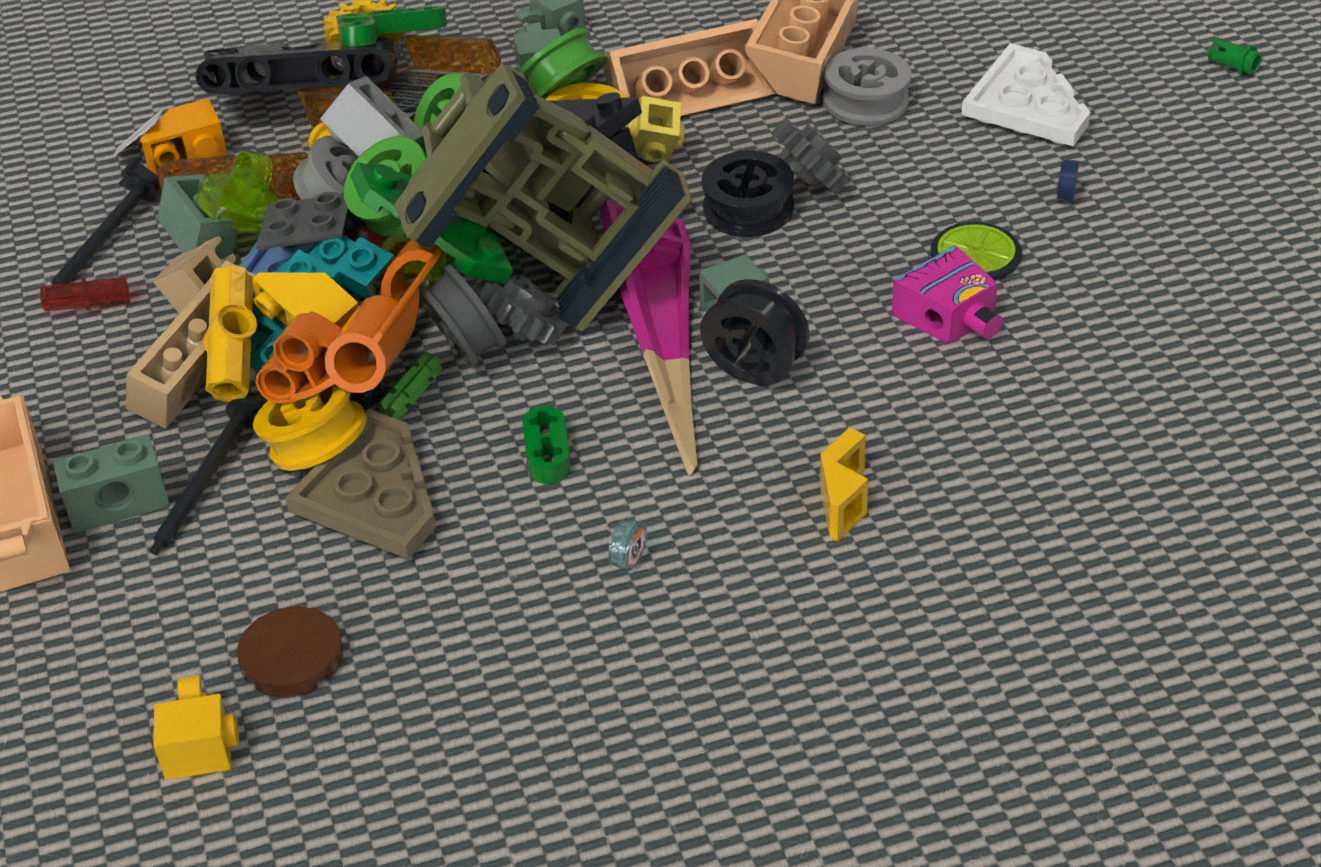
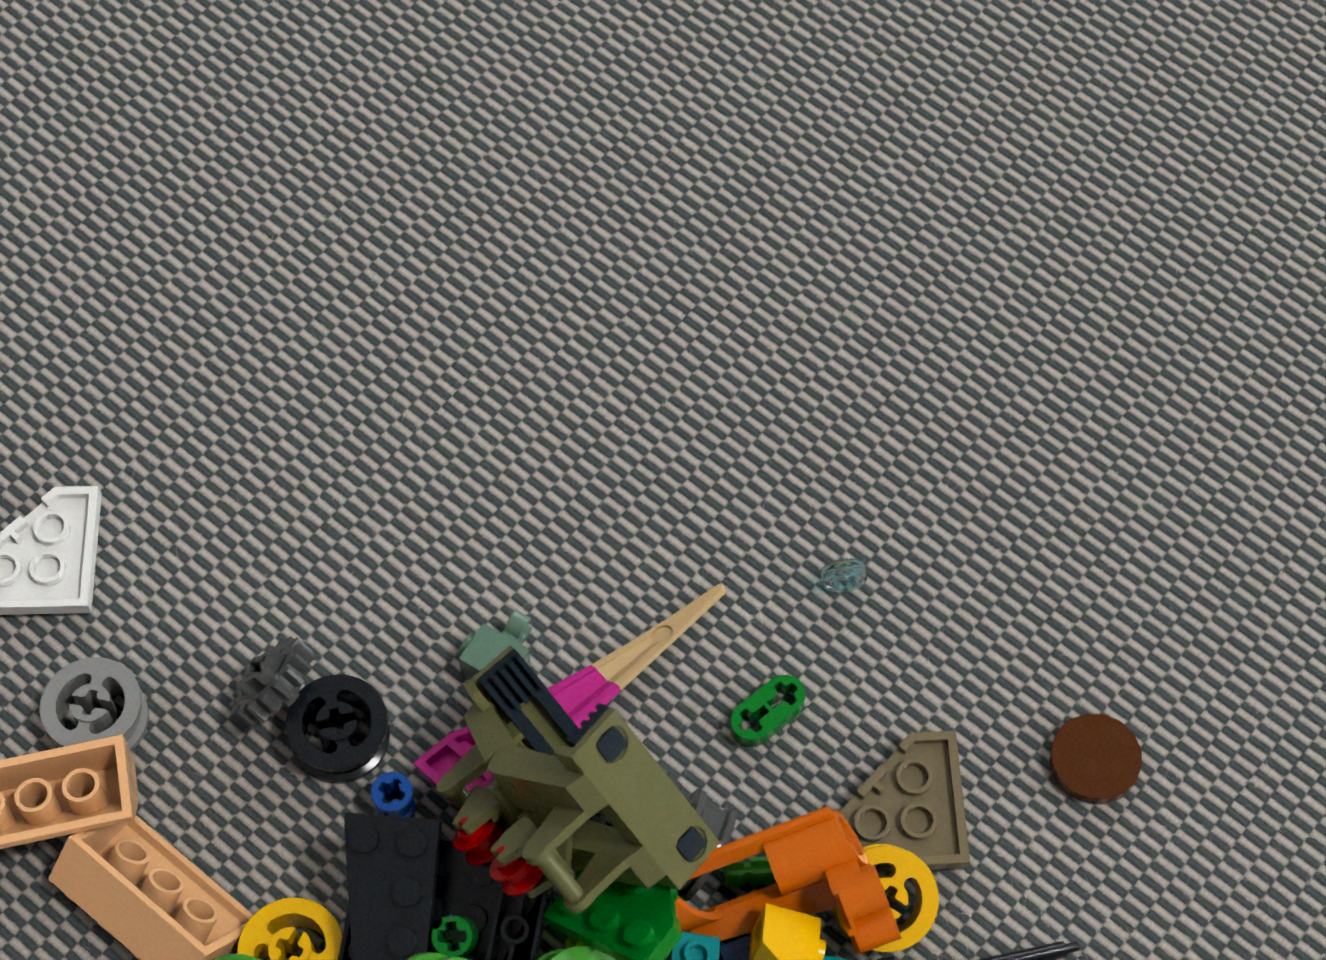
camera: 125 degrees left, 20 degrees up
(193, 732) = (1216, 758): yellow brick -> none
(657, 129) = (291, 859): light yellow brick -> none
(734, 320) = (566, 591): black wheel -> none
(841, 485) = (702, 454): yellow slope -> none
(947, 297) = (405, 486): dark pink torso -> none
(984, 243) = (310, 509): lime wheel -> none
(1067, 180) = (177, 464): dark blue tile -> none

